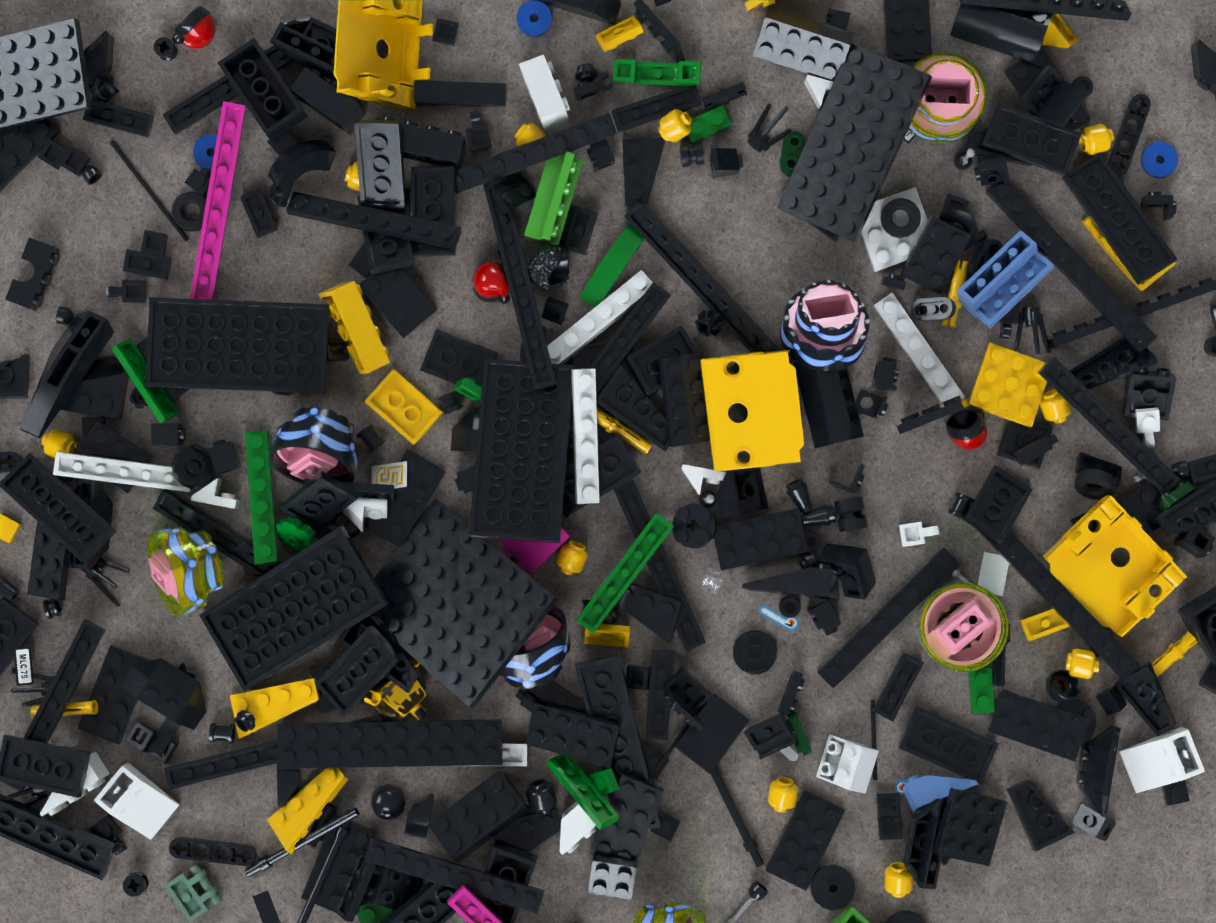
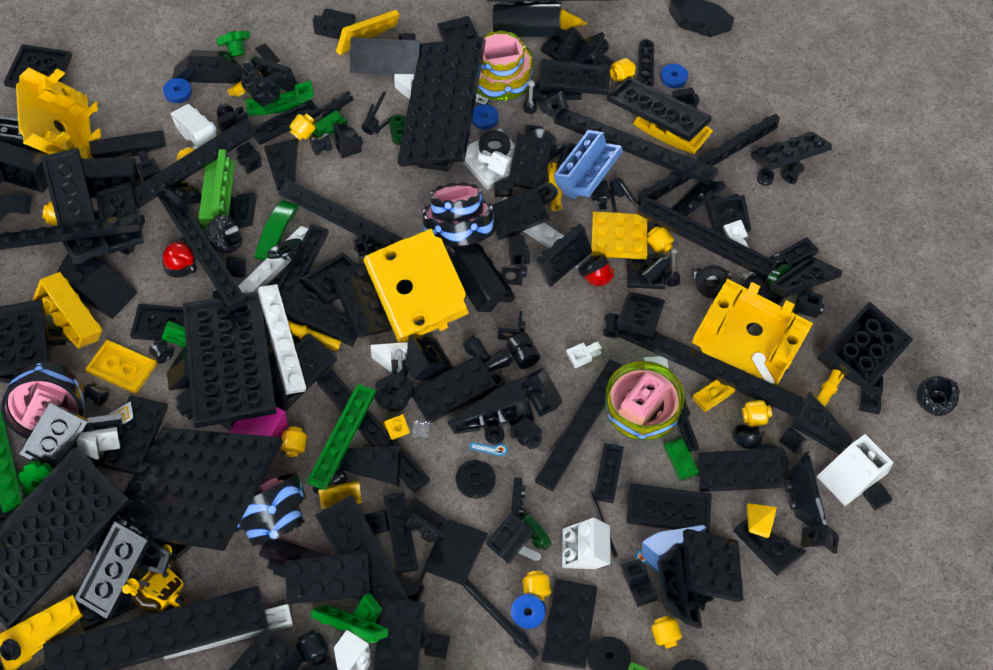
camera: 25 degrees left, 30 degrees down
(445, 32) = (109, 110): black plate -> none
(614, 313) = (285, 249): none -> black dish
(632, 62) = (261, 89): none -> black bracket
(685, 570) = (396, 427): none -> yellow bracket
(774, 822) = (530, 601): none -> blue piece
(894, 248) = (497, 161): none -> white plate
(900, 327) = (519, 213): none -> black plate
(912, 165) = (491, 117): none -> blue piece
(1038, 788) = (760, 519): none -> yellow slope
(1052, 459) = (672, 274): none -> black hinge
(1110, 597) = (759, 360): none -> white sticker

